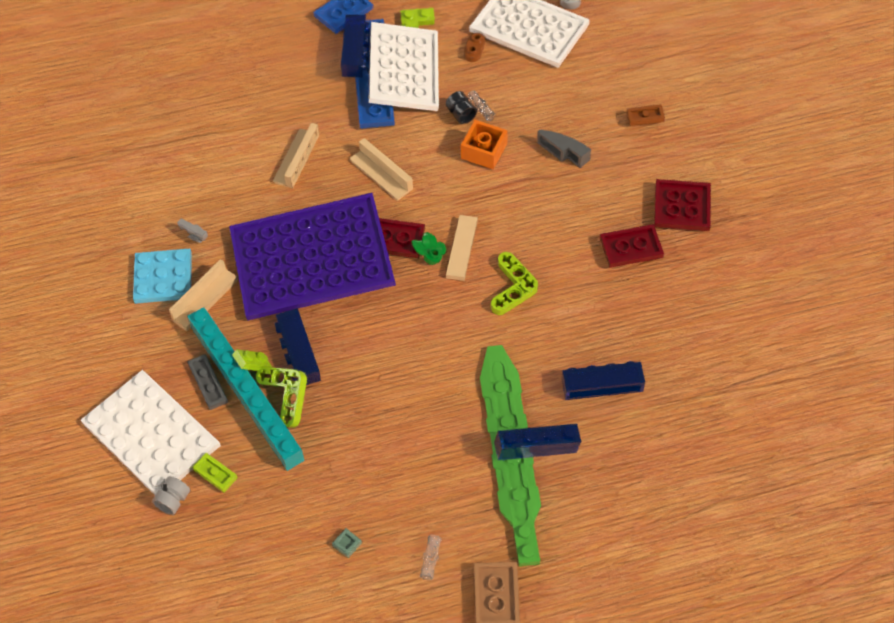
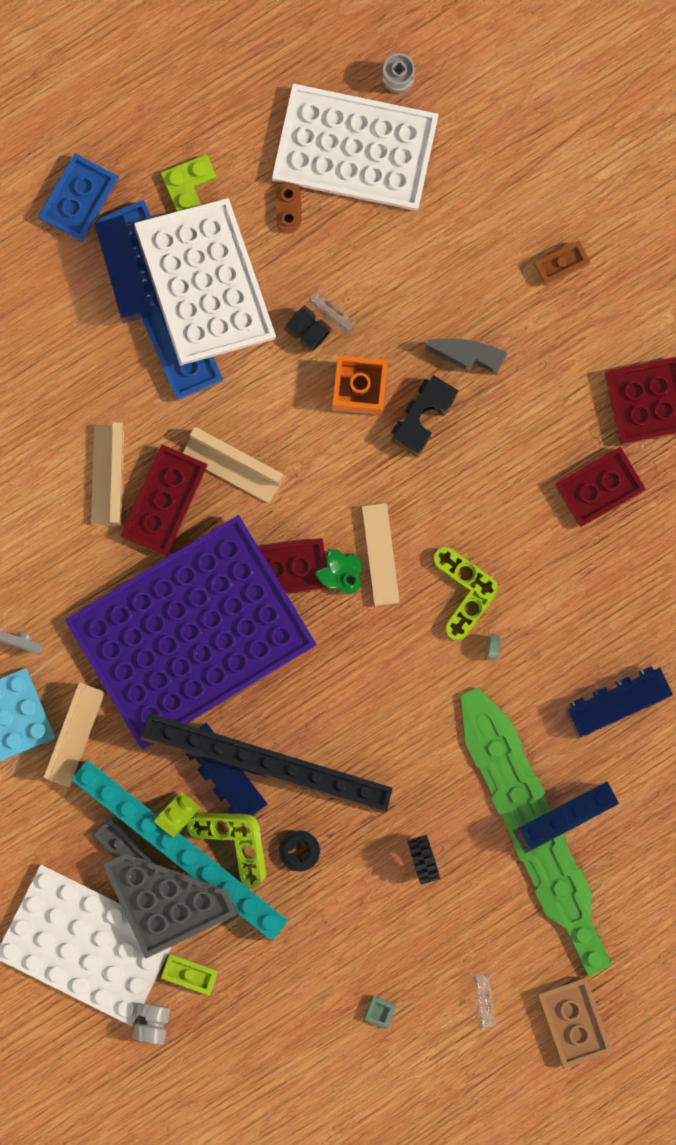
camera: 20 degrees left, 25 degrees up
(217, 413) = (164, 903): none -> dark grey plate
(325, 408) = (307, 841): none -> black gear
(327, 177) = (164, 500): none -> dark red plate
(330, 344) = (266, 763): none -> black plate
(419, 440) = (423, 859): none -> black tyre
(521, 320) = (492, 647): none -> sand green tile
(531, 165) = (434, 396): none -> black arch

